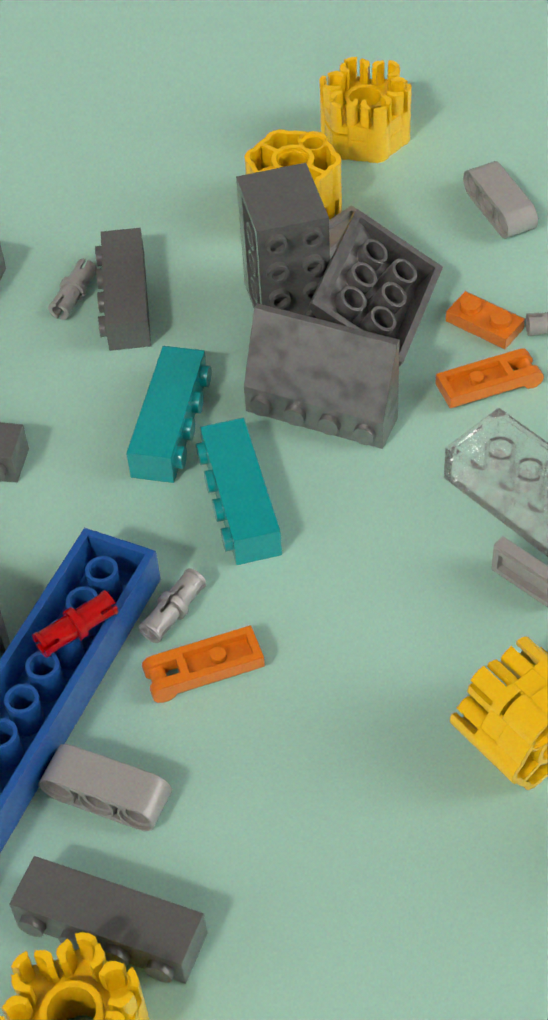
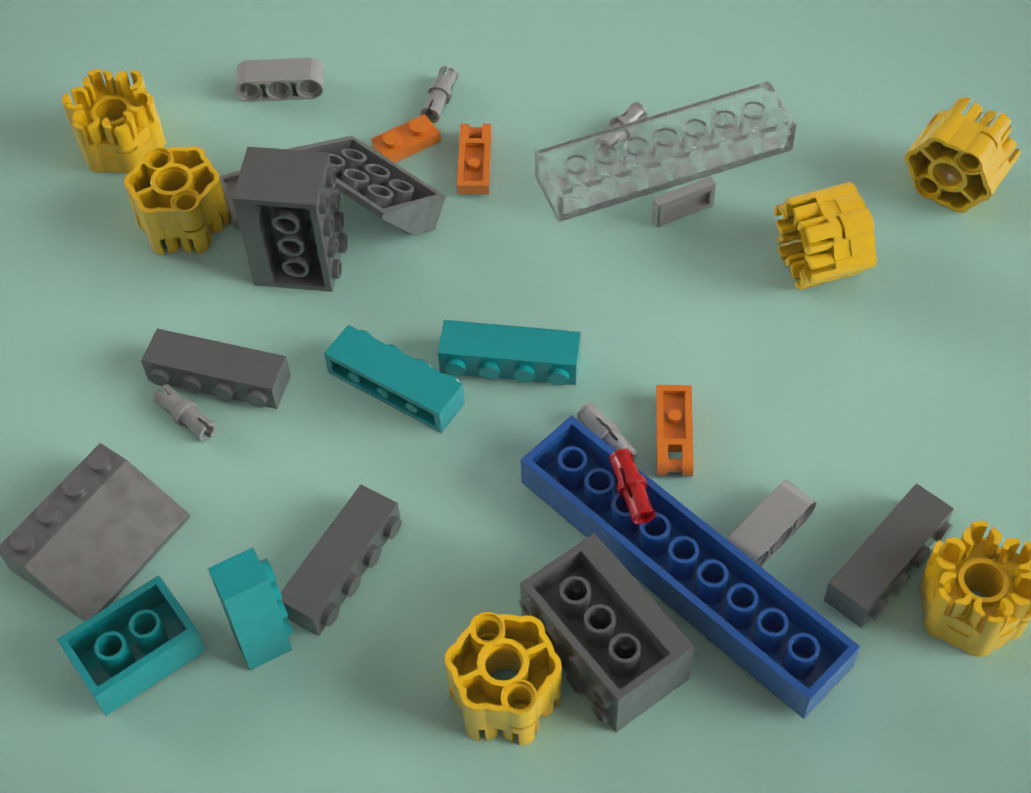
camera: 70 degrees left, 5 degrees up
(322, 376) = (437, 250): flat silver slope -> none

